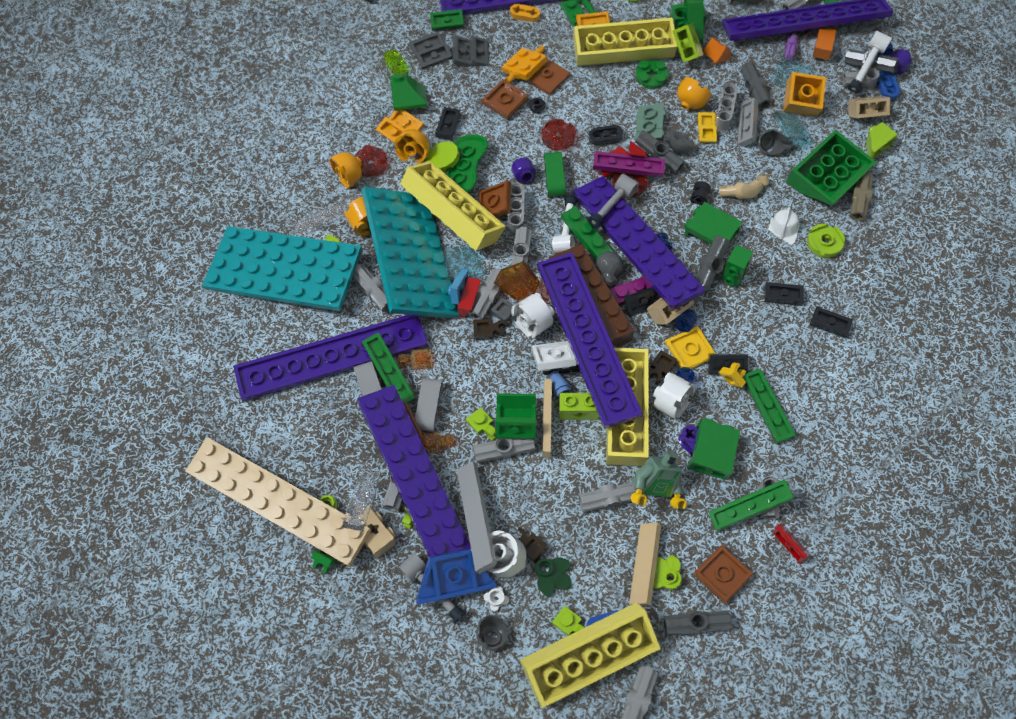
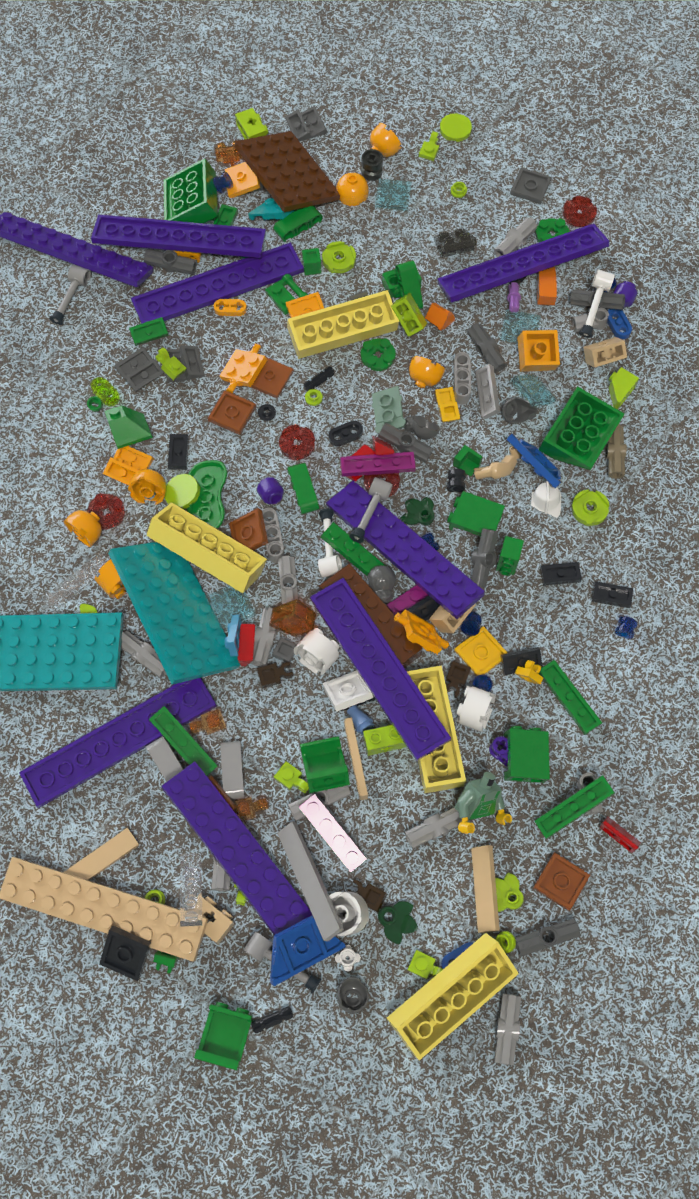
camera: 15 degrees left, 5 degrees up
(286, 544) = (125, 953): none -> black tile
(291, 455) = (104, 856): none -> tan tile
(360, 643) = (224, 1036): none -> green panel
(385, 68) = (95, 400): none -> green hinge
(409, 639) = (272, 1019): none -> black axle
(459, 50) = (170, 366): none -> lime plate
(508, 479) = (332, 832): none -> plate
(583, 103) = (313, 401): none -> lime plate
(592, 85) = (319, 378): none -> black axle
(636, 316) = (421, 632): none -> light orange plate
(658, 613) = (506, 935): none -> lime plate
(659, 214) = (416, 510): none -> dark green plate
(716, 177) = (467, 460): none -> green panel
(777, 182) = (537, 459): none -> blue wing
(838, 353) = (626, 627): none -> clear blue wheel

